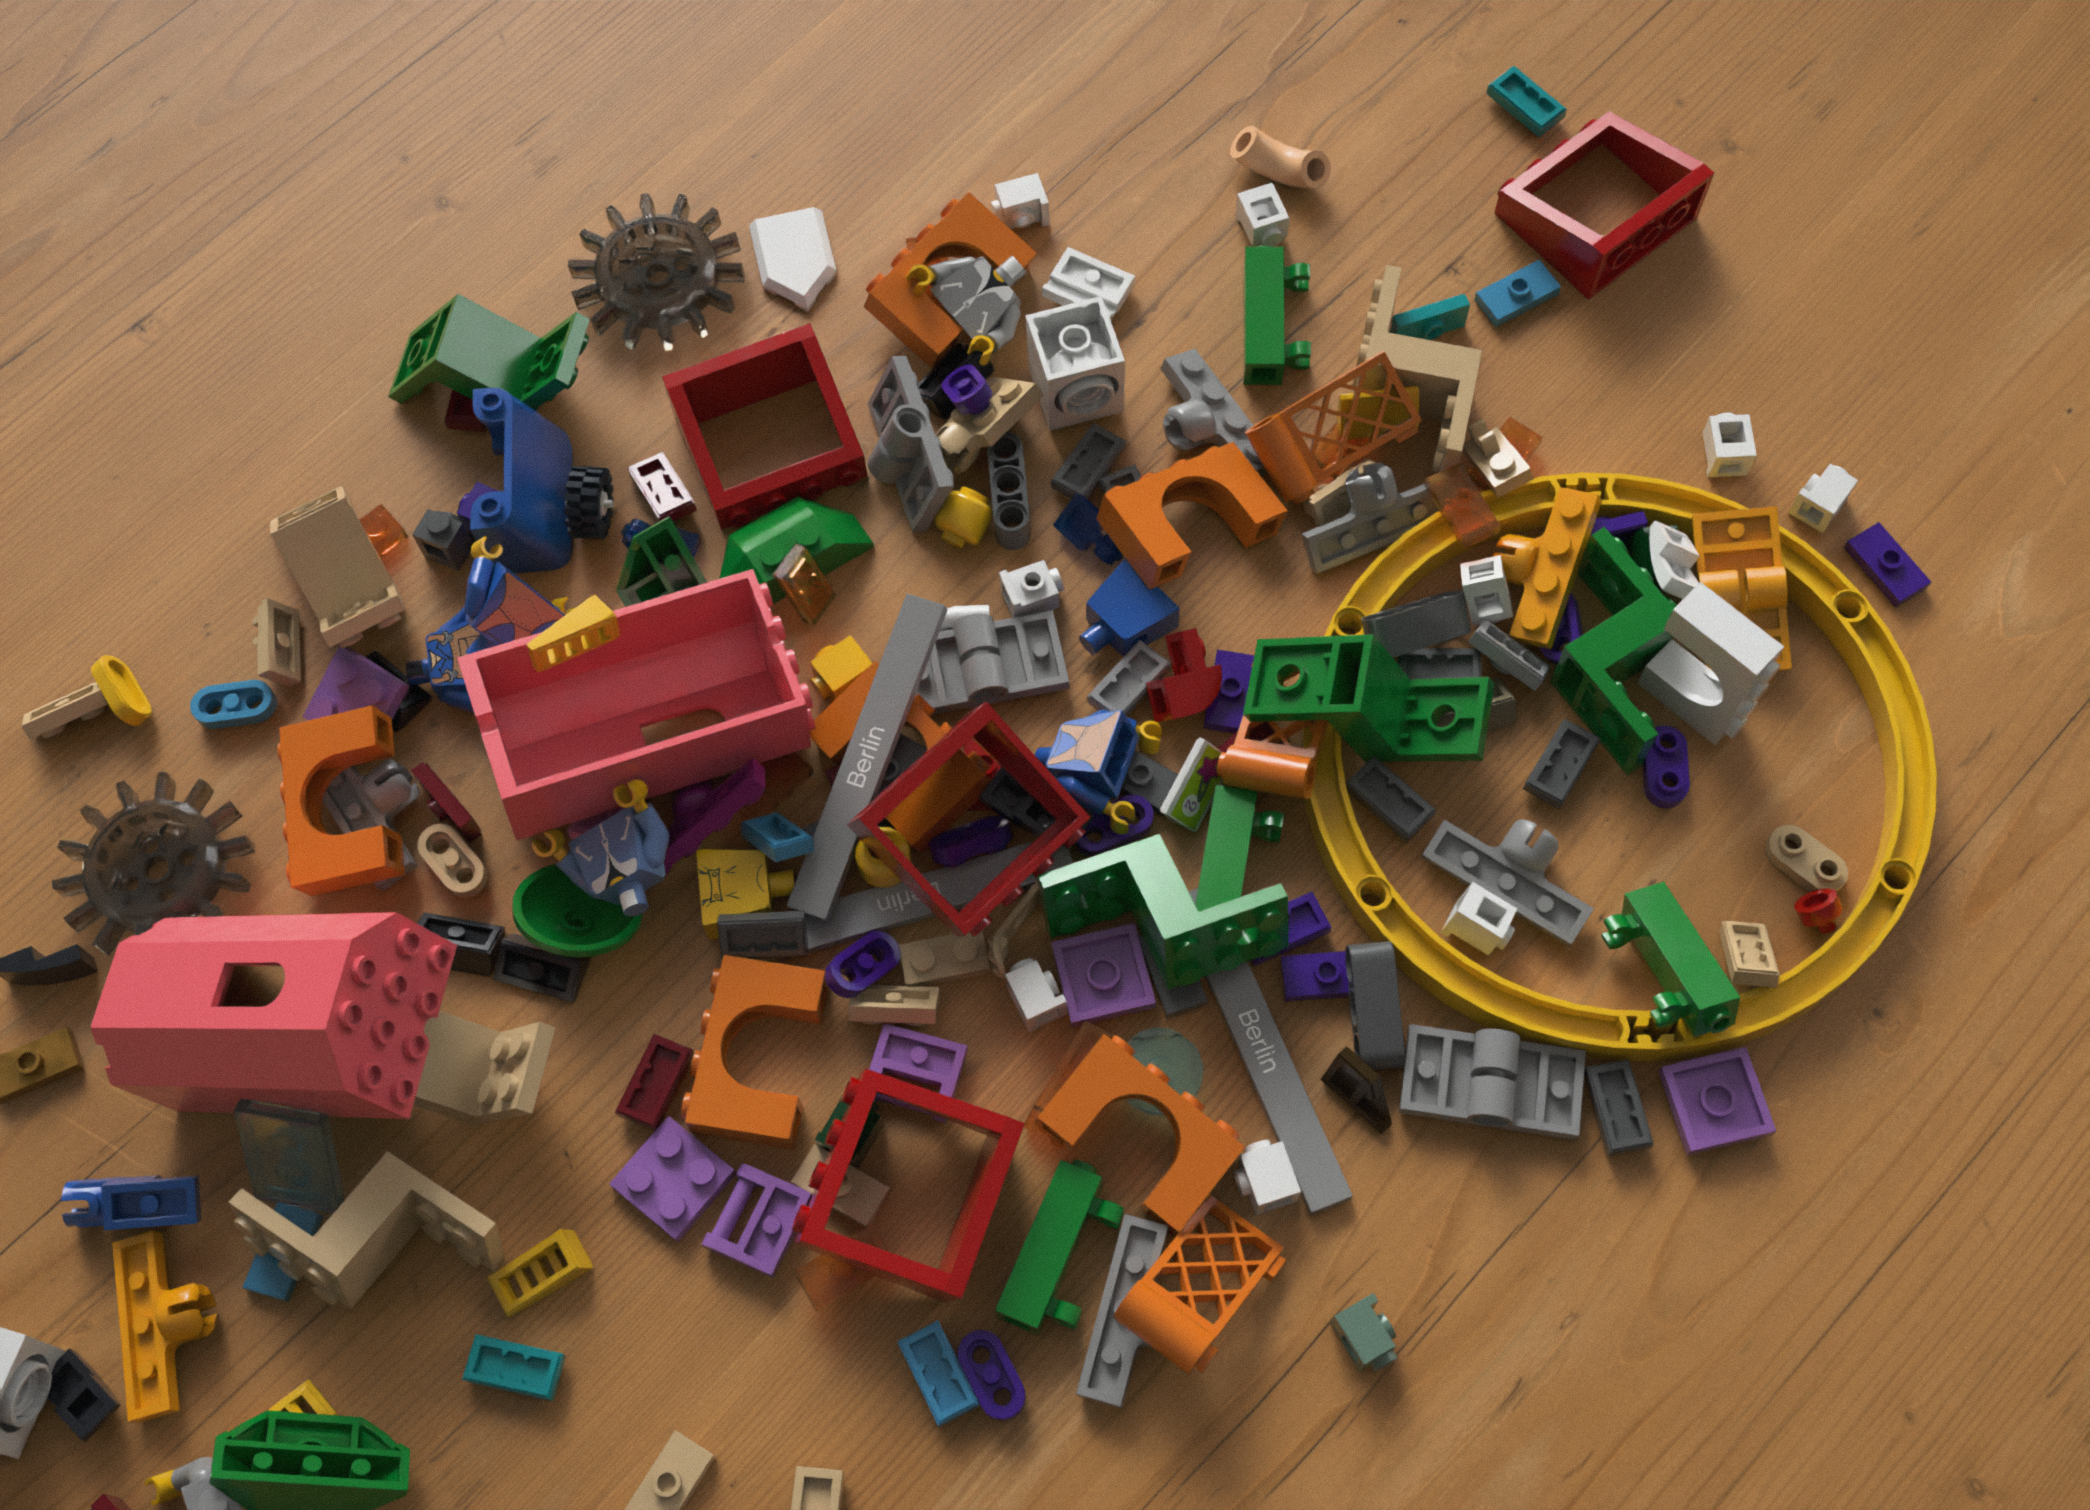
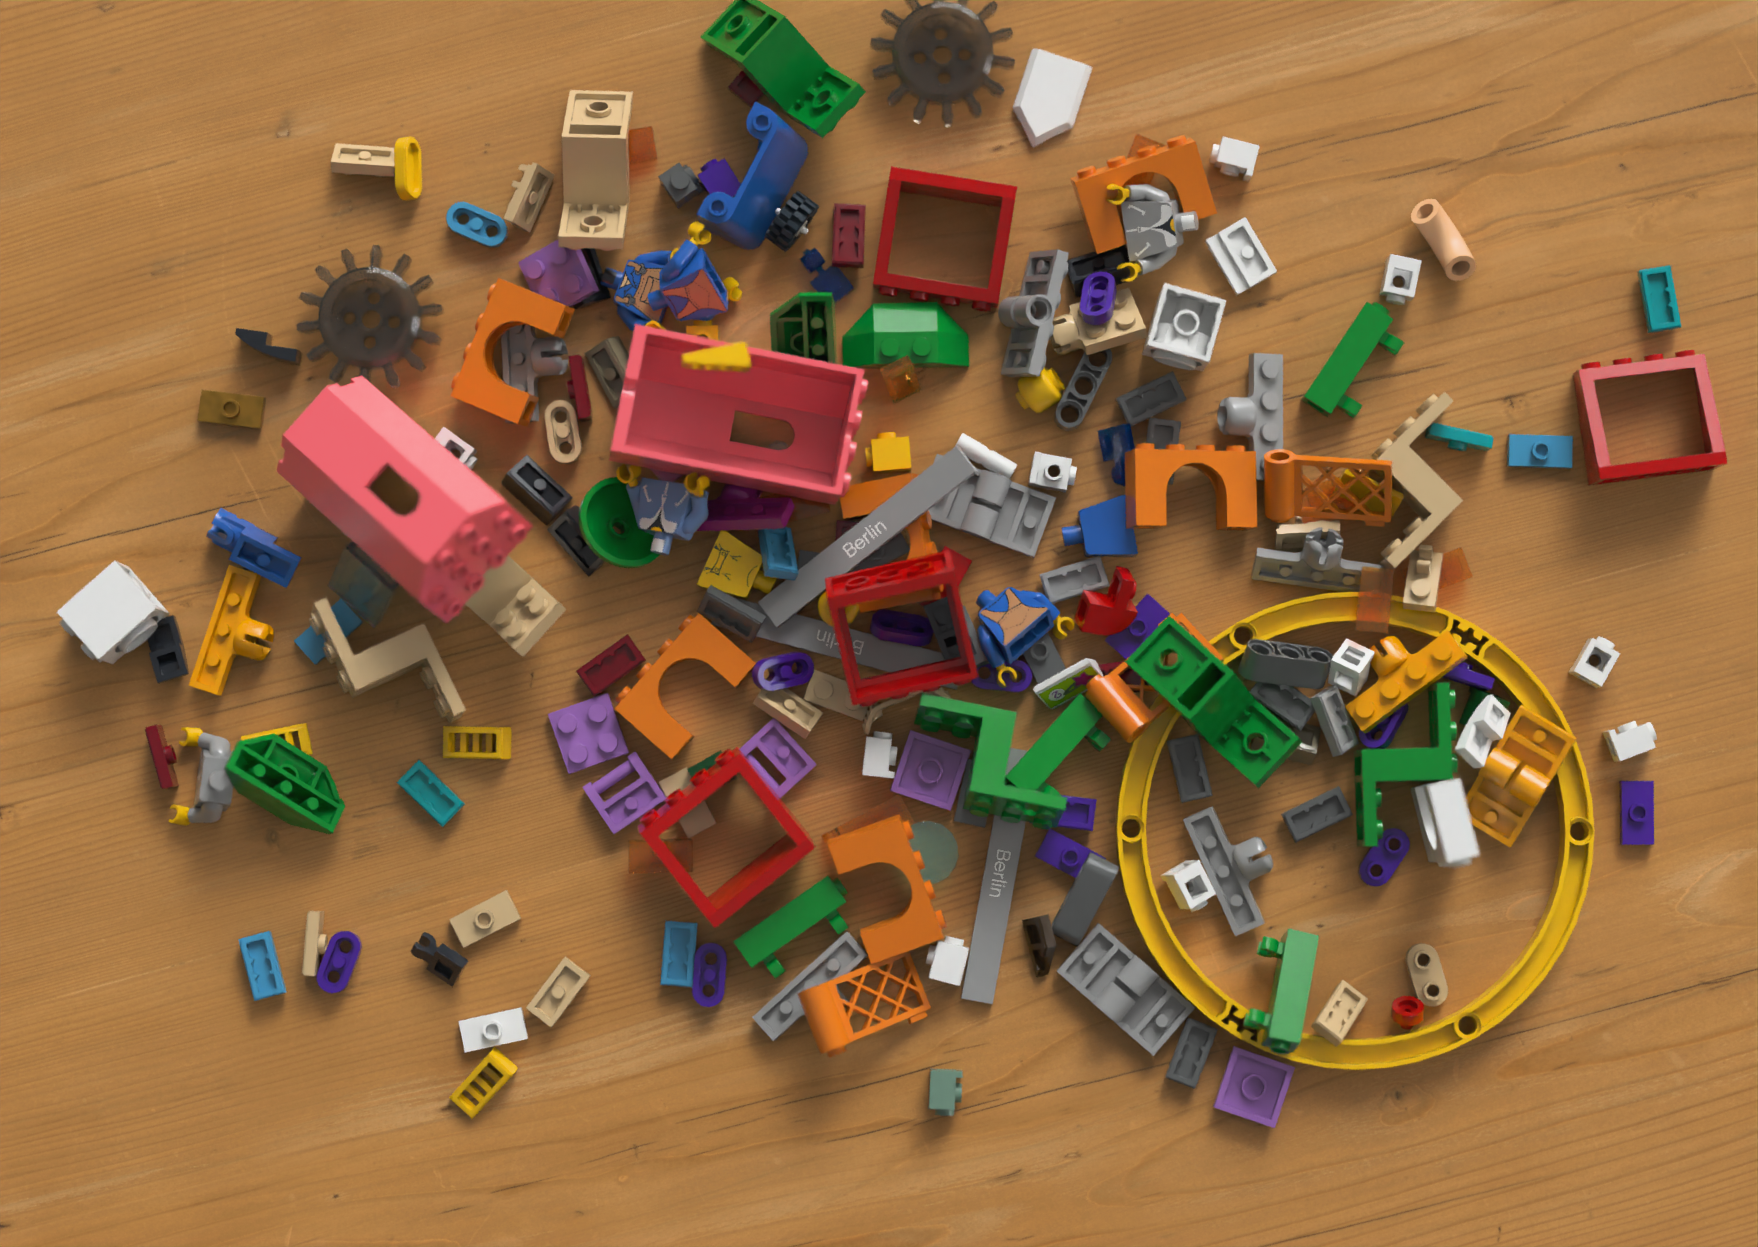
camera: 30 degrees right, 20 degrees up
(467, 763) = (610, 364): none -> dark tan slope

